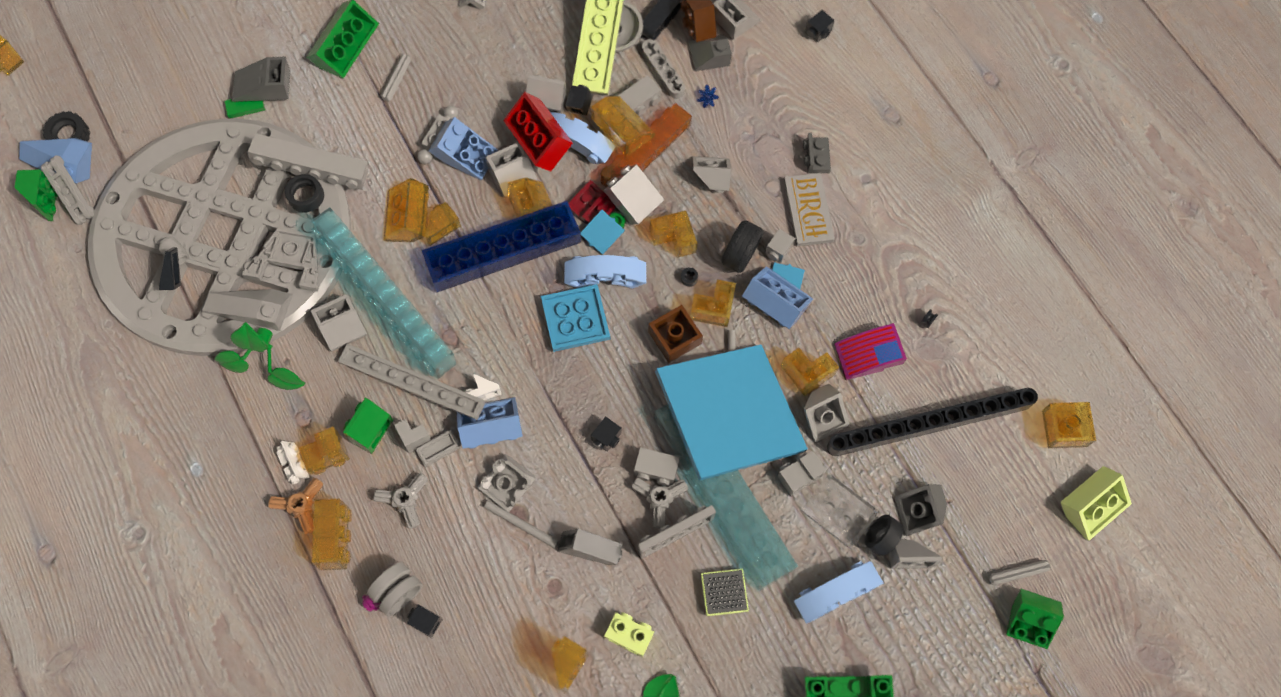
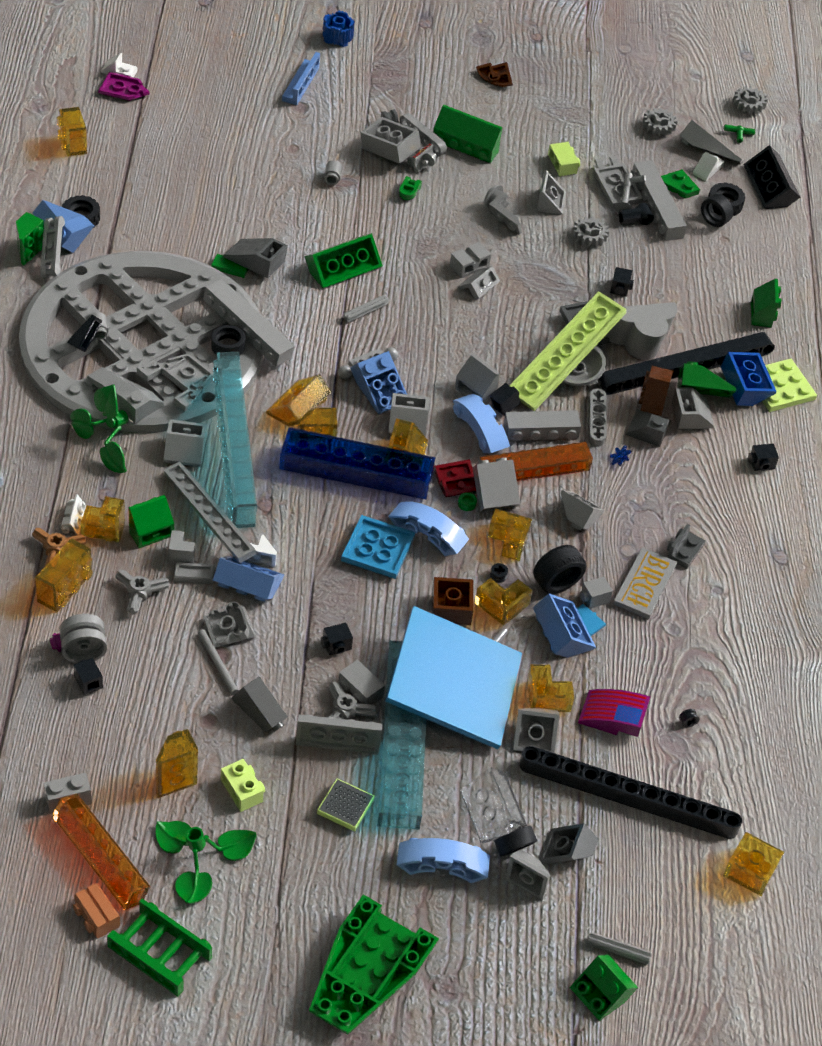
camera: 30 degrees right, 20 degrees down
(537, 132) = (449, 397): red brick -> none
(602, 232) = (450, 500): dark azure piece -> none
(621, 123) = (525, 429): clear yellow slope -> none
(801, 473) = (477, 760): light grey brick -> none
(1096, 502) = (734, 939): yellowish green slope -> none

